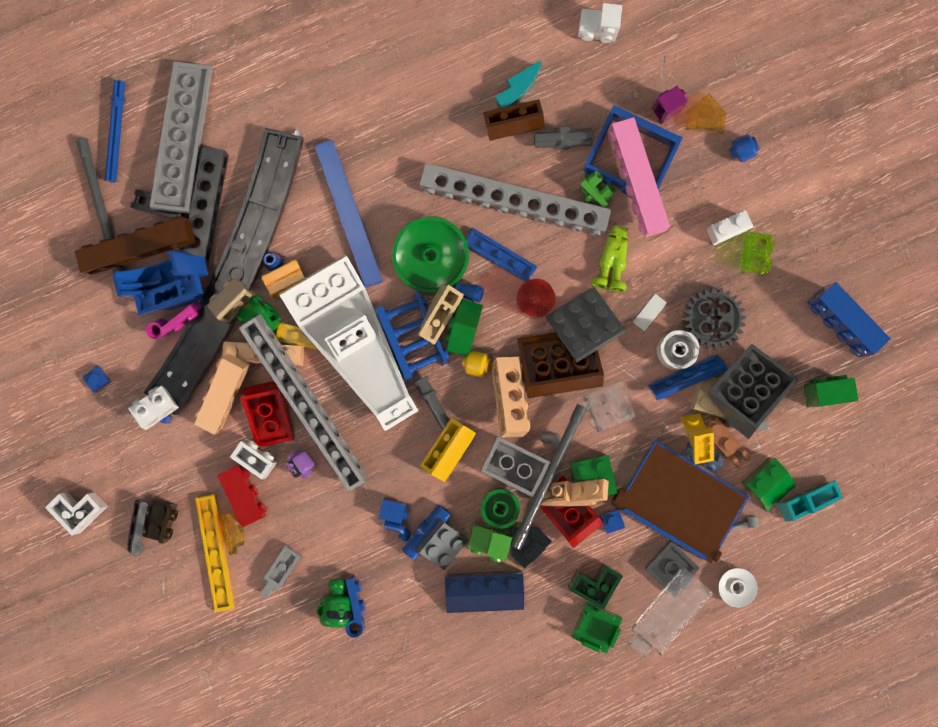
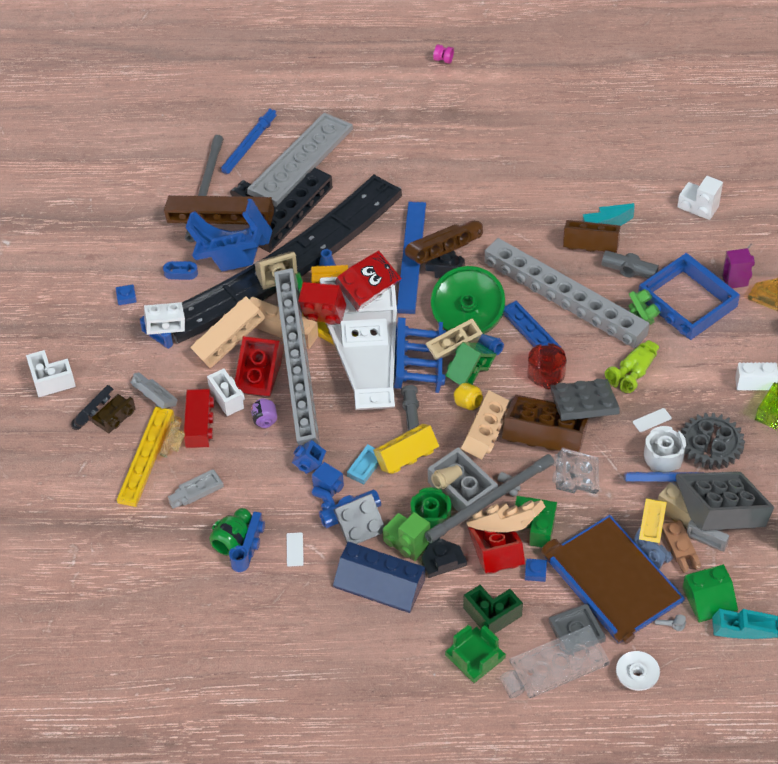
camera: 25 degrees right, 35 degrees down
(131, 323) = (180, 270): none -> blue beam
(174, 324) = (218, 273): dark pink plate -> none
(185, 483) = (153, 391): none -> light grey hinge
(298, 329) = (322, 302): none -> red brick
(327, 278) = (367, 280): none -> red slope
(365, 497) = (308, 456): none -> blue brick
(374, 187) = (443, 241): none -> reddish brown piece
(387, 212) = (444, 263): none -> black plate
(396, 589) = (294, 549): none -> white sticker
(416, 477) = (363, 465): none -> medium azure tile
(504, 478) = (444, 477): none -> tan cone
(639, 177) = (684, 305): bright pink brick -> none

